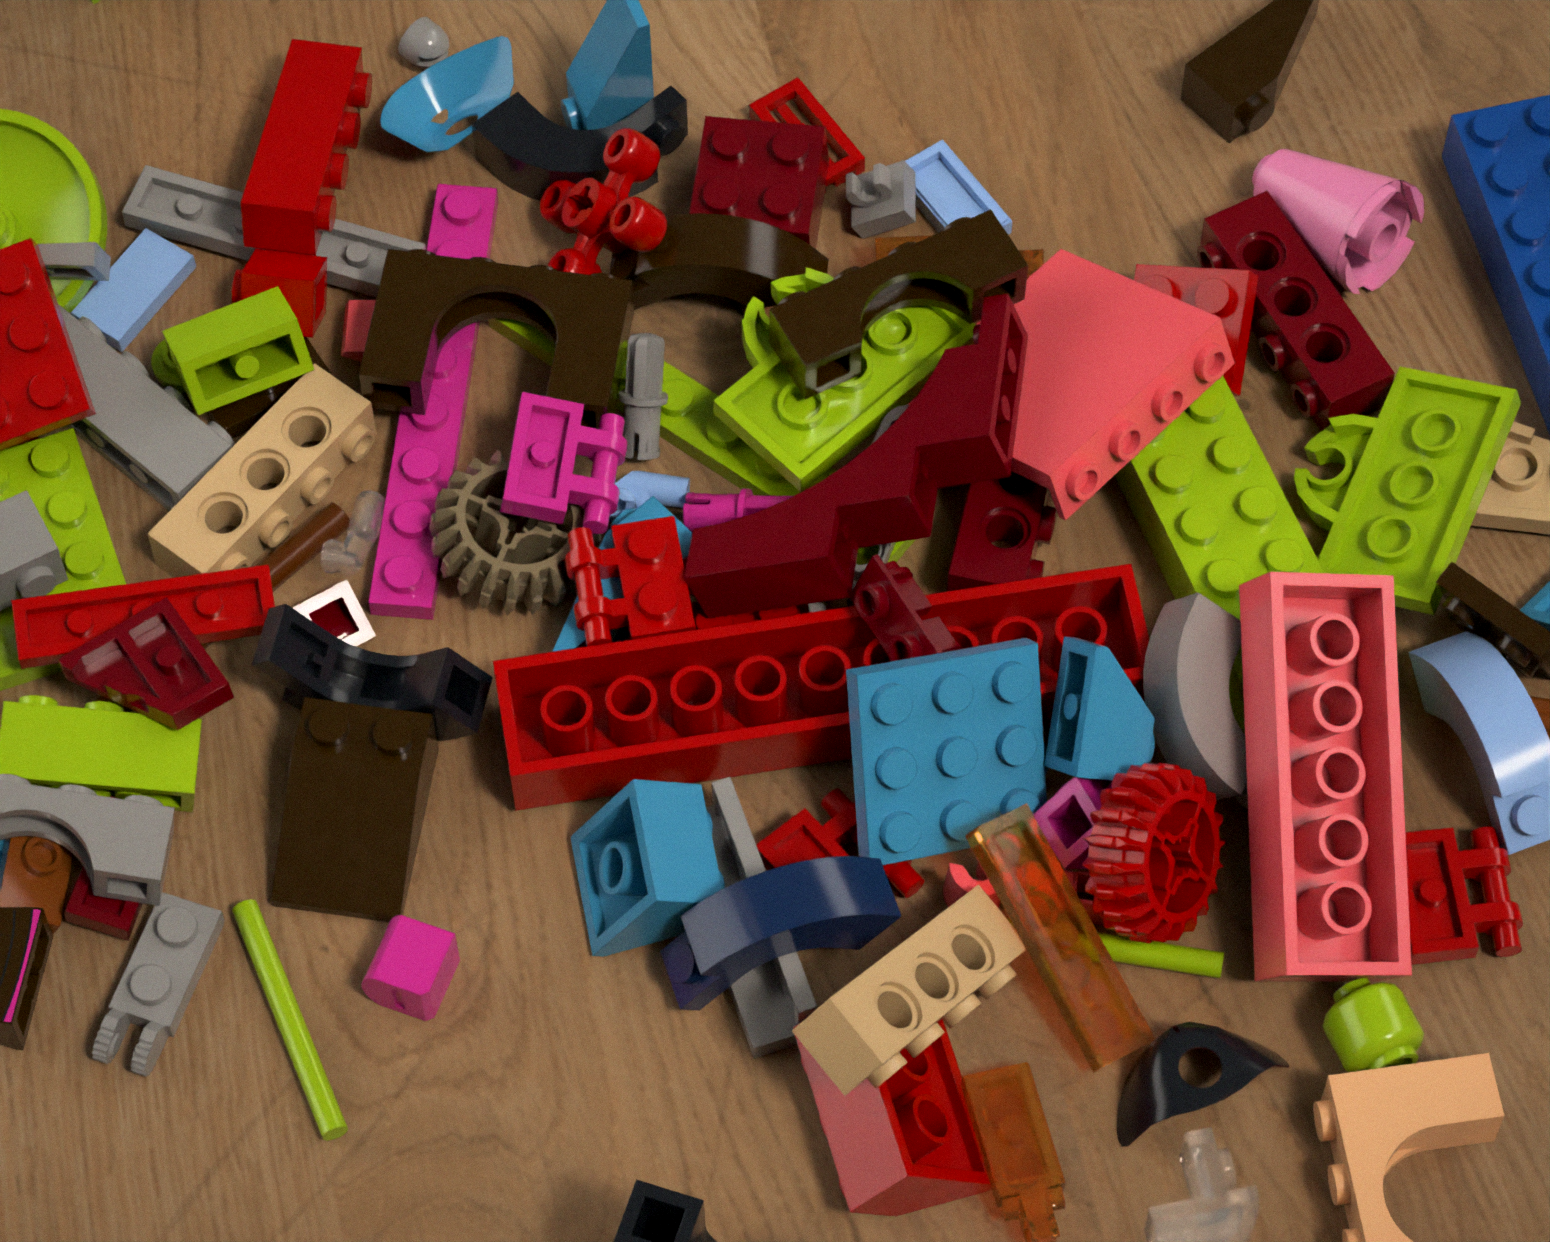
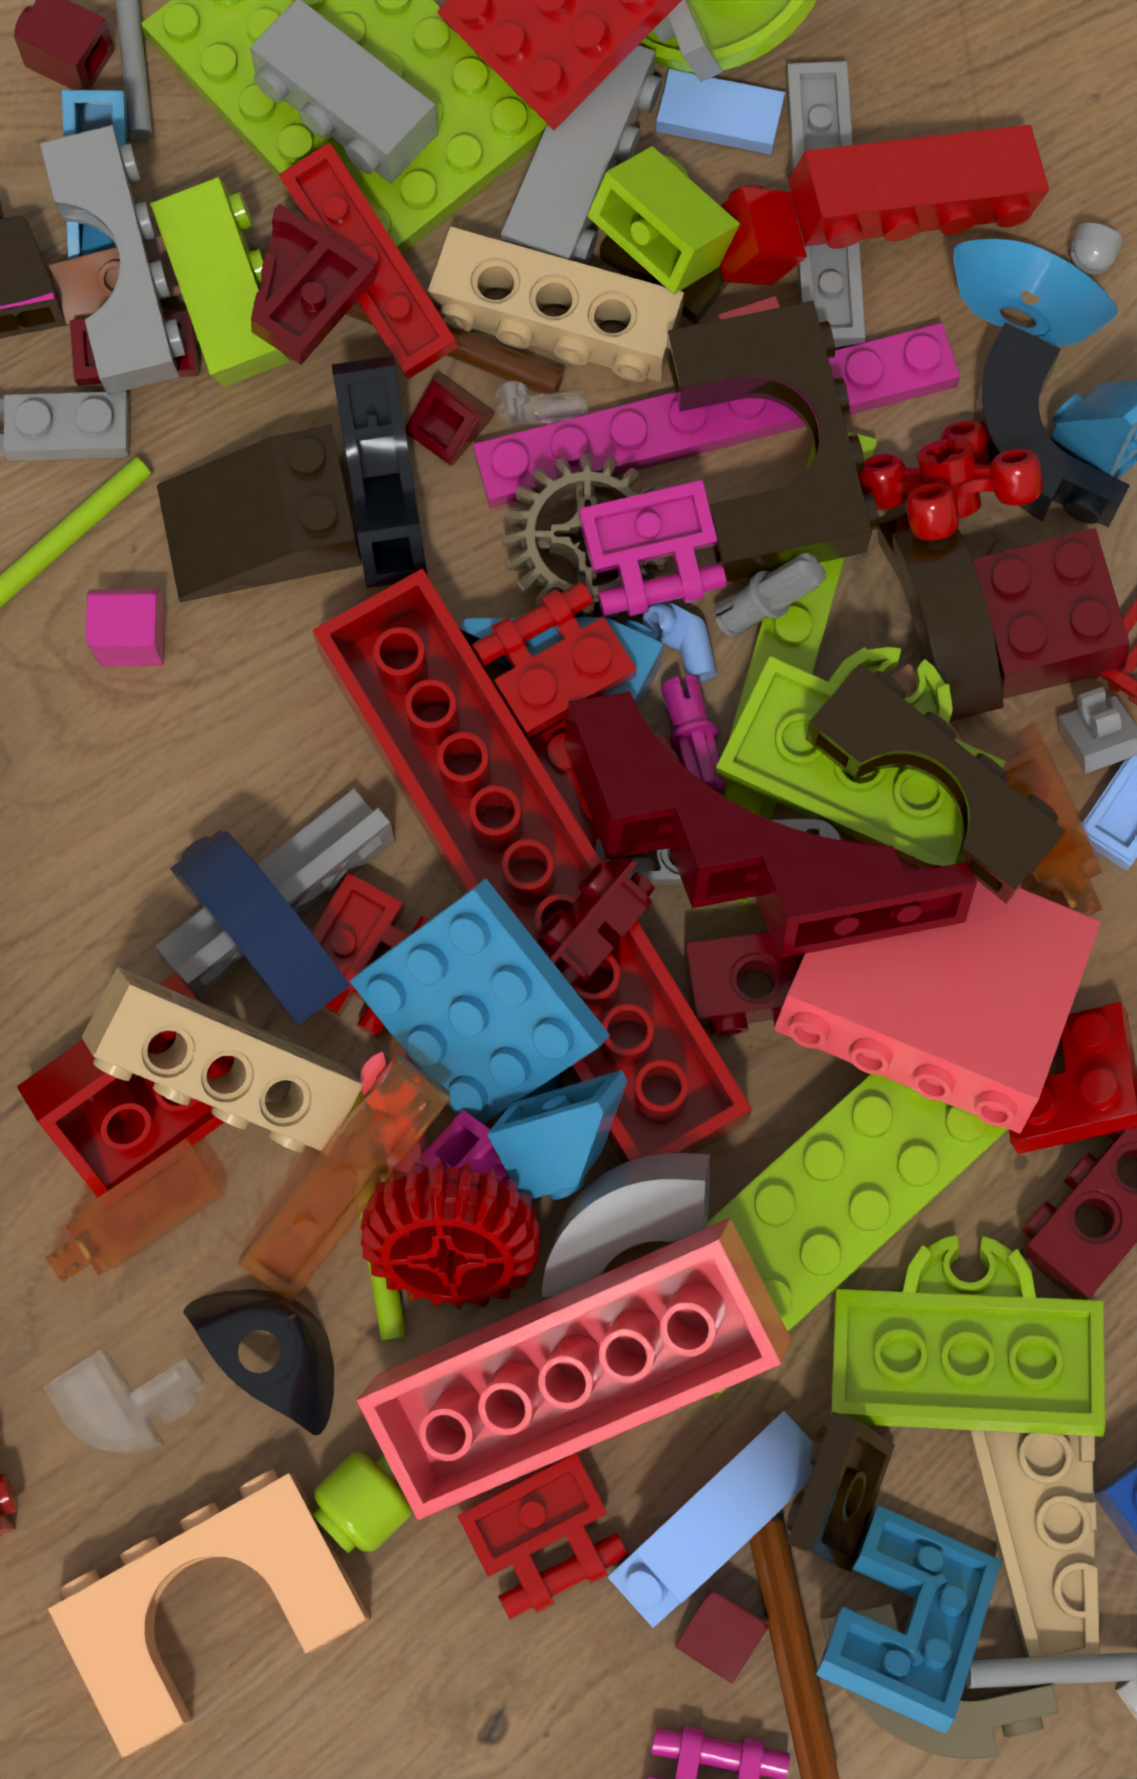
camera: 70 degrees right, 15 degrees up
(645, 864) = (288, 789): dark azure slope -> none

